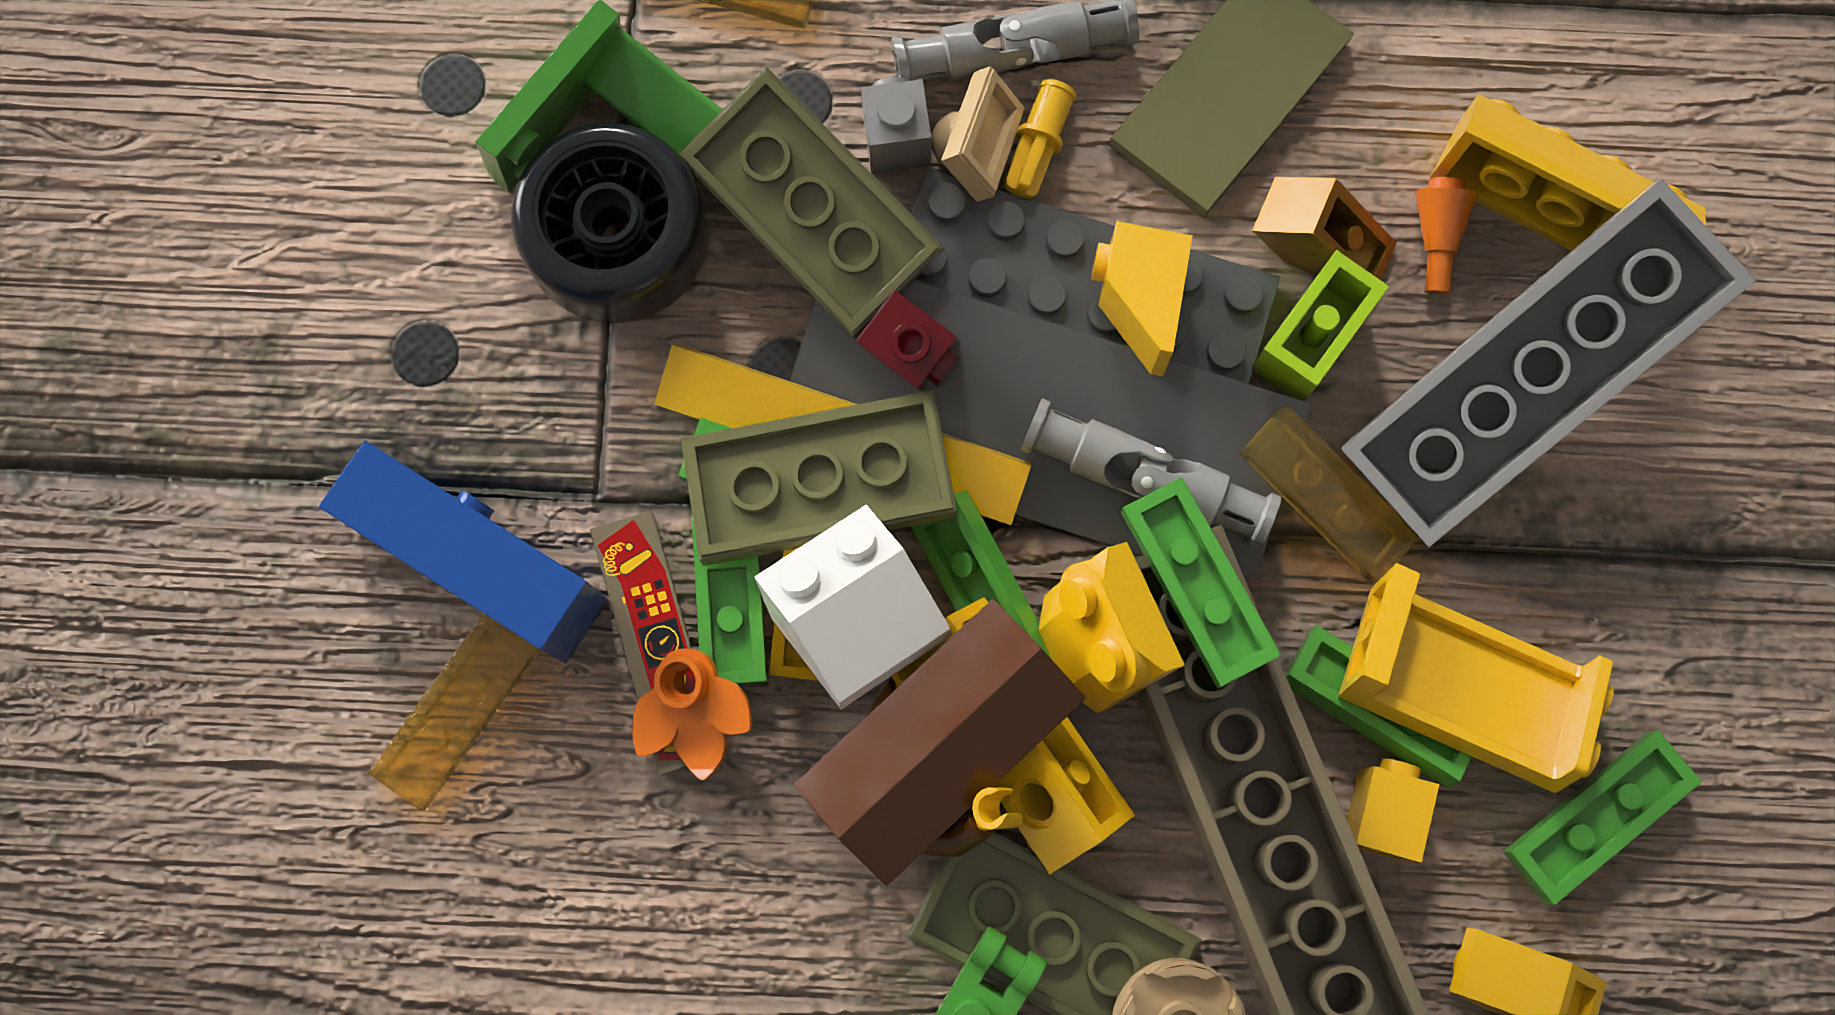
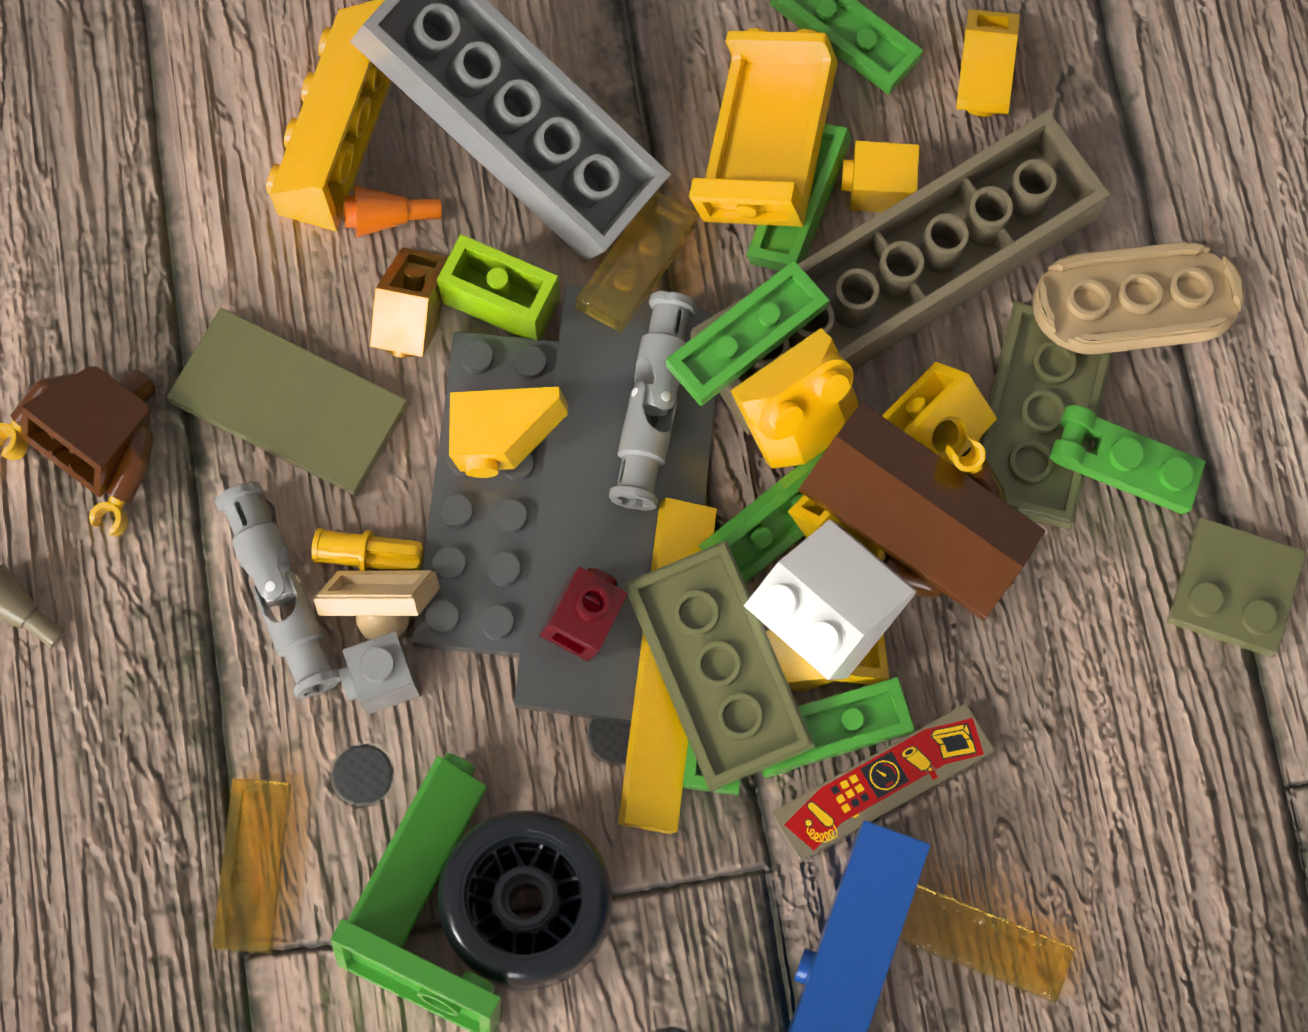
camera: 100 degrees left, 5 degrees down
(690, 721) = (946, 727): orange plate -> none
(810, 202) = (474, 724): olive tile -> none

